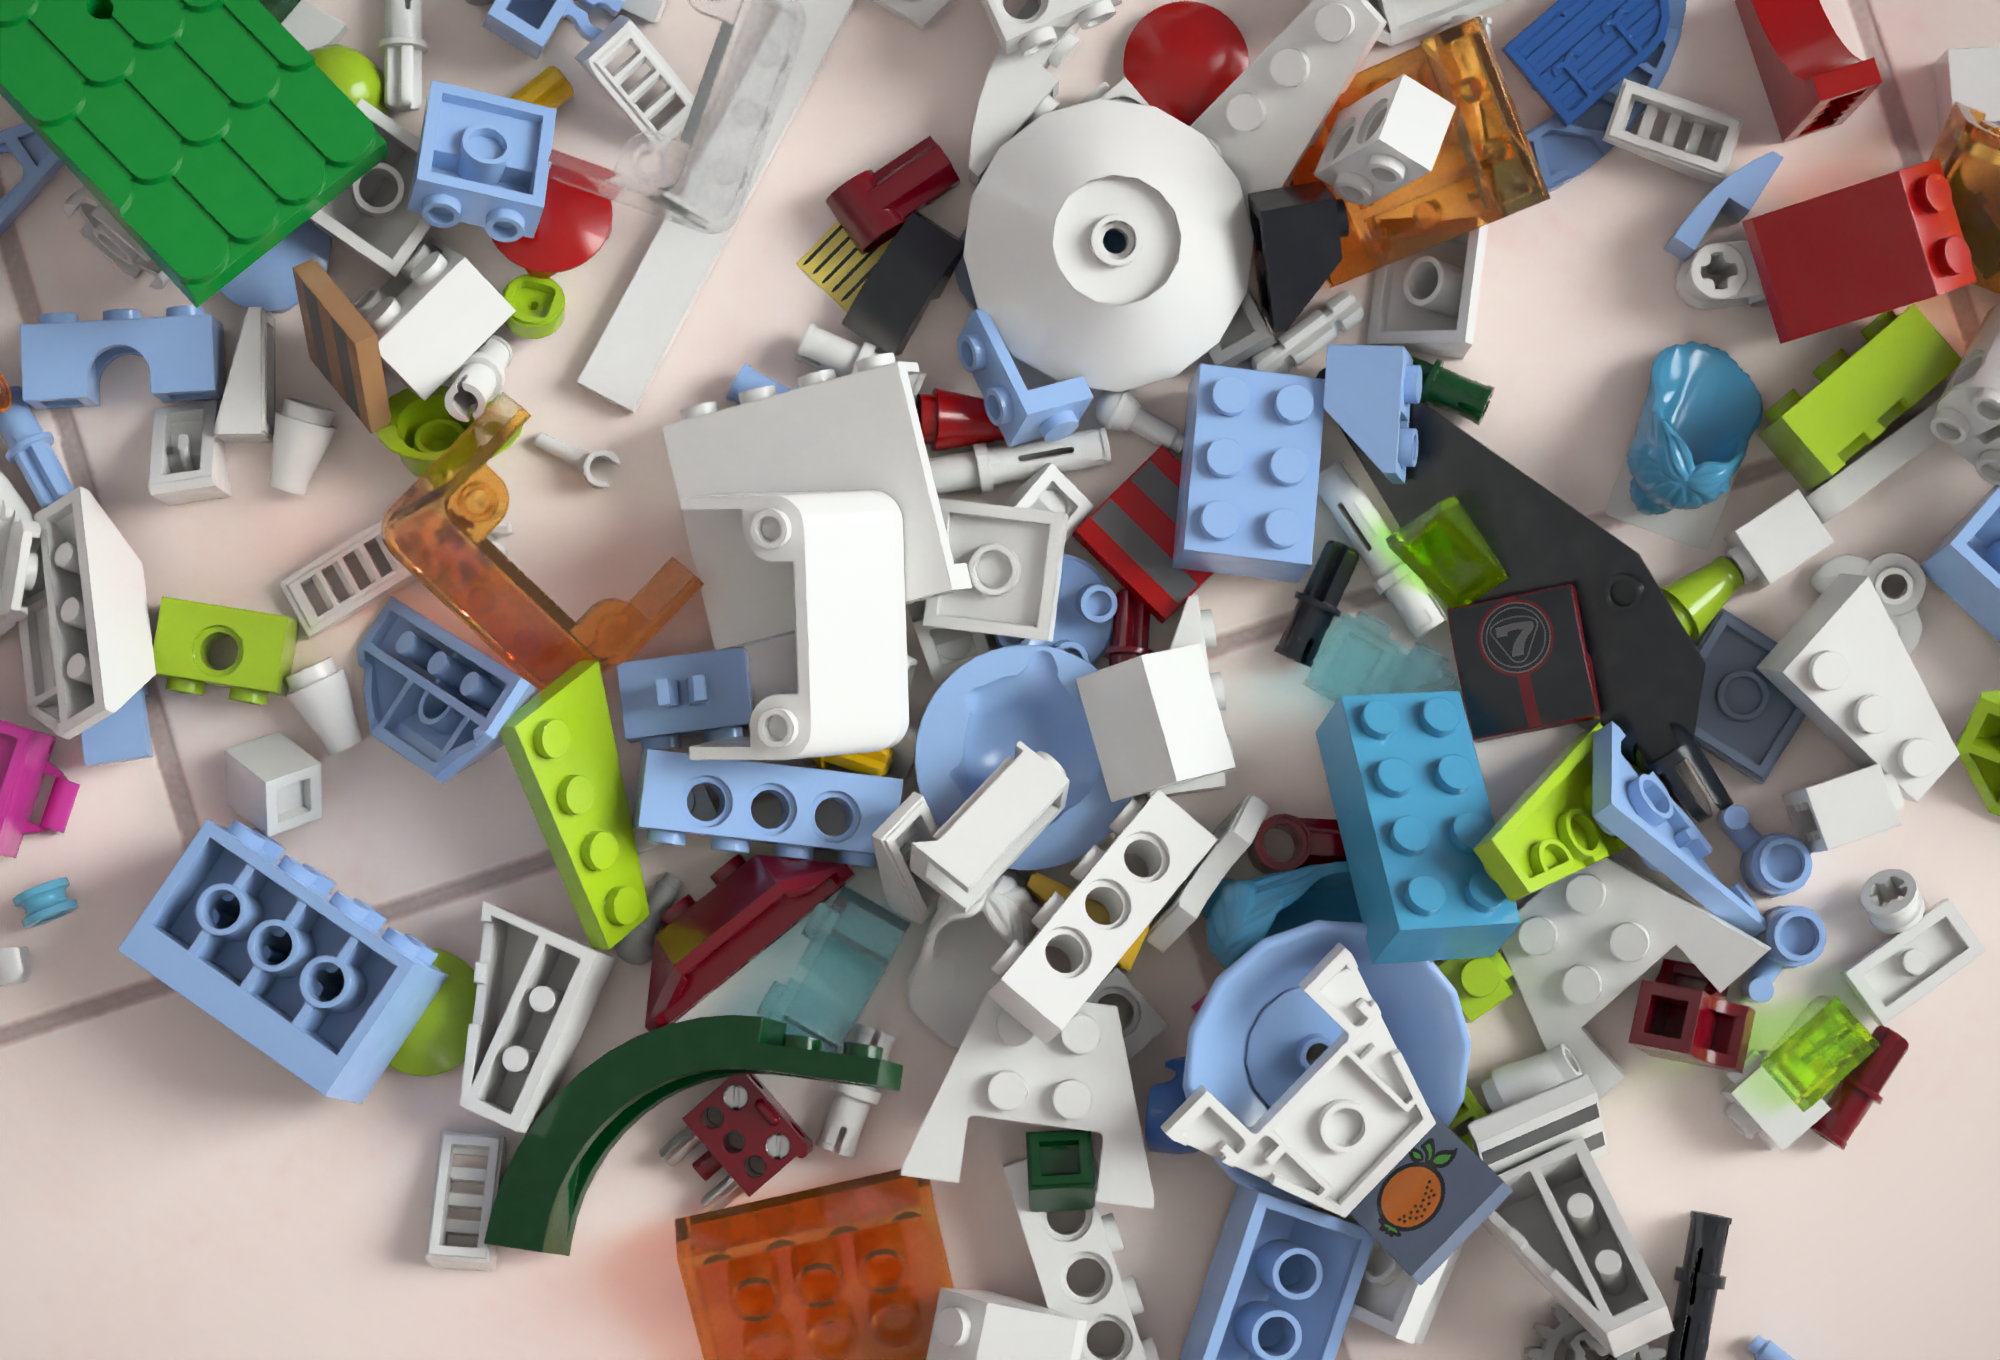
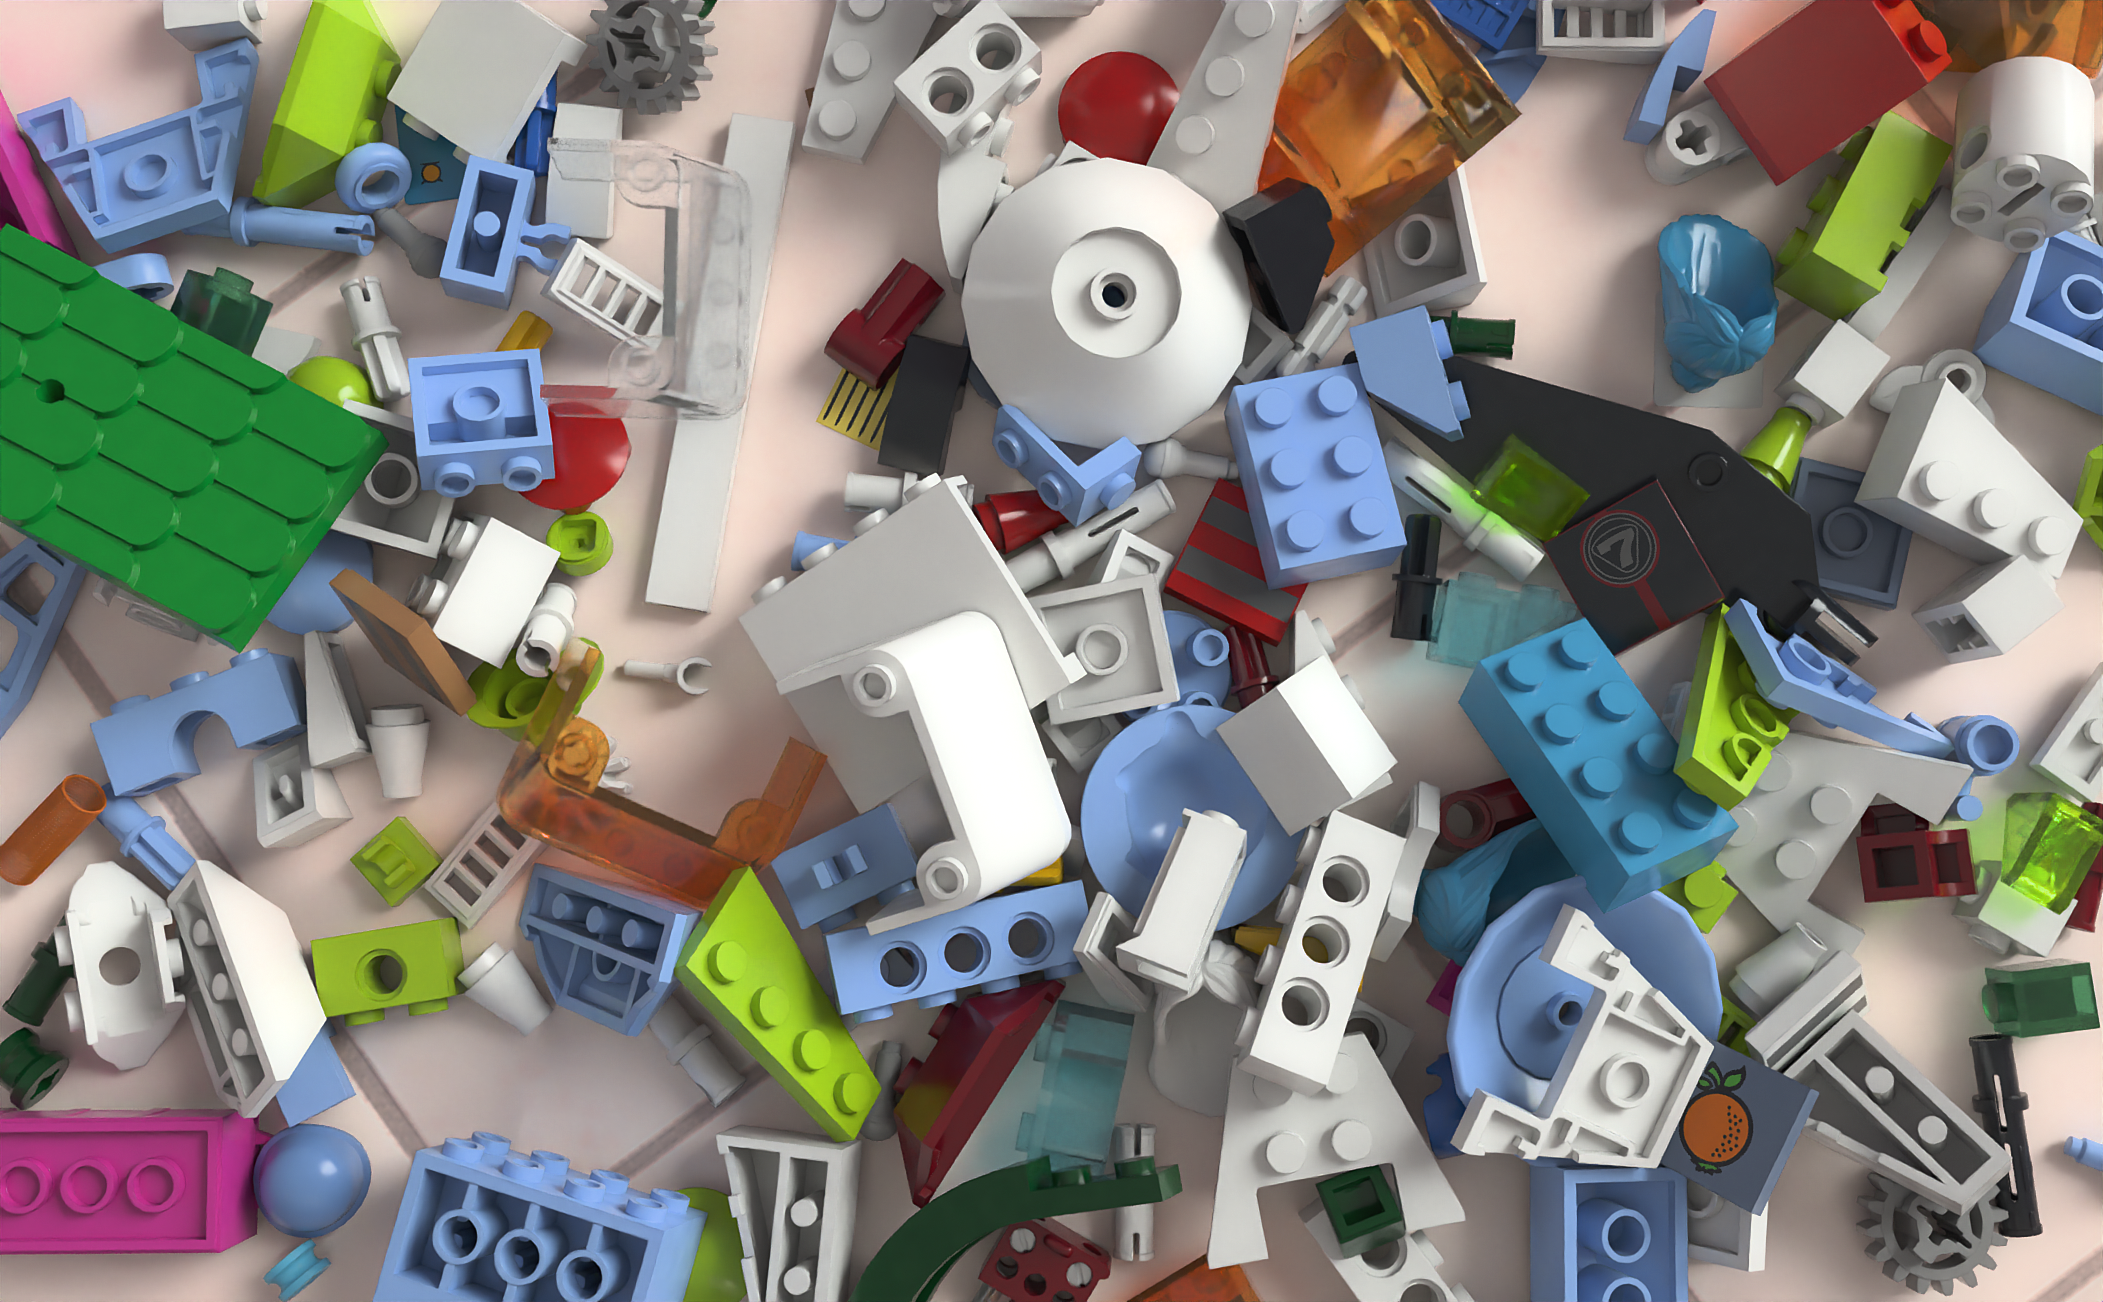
camera: 10 degrees left, 0 degrees up
(85, 822) = (311, 1179): none -> medium blue helmet
(261, 551) = (397, 861): none -> lime tile
(273, 783) = (479, 1082): white panel -> none
(485, 822) = (695, 1052): none -> white pin
(1384, 141) = (1340, 113): white brick -> none
(1768, 863) = (1925, 681): light blue piece -> none
(1769, 1191) = (2040, 998): none -> clear green brick
(1898, 914) = (2072, 691): white bush -> none

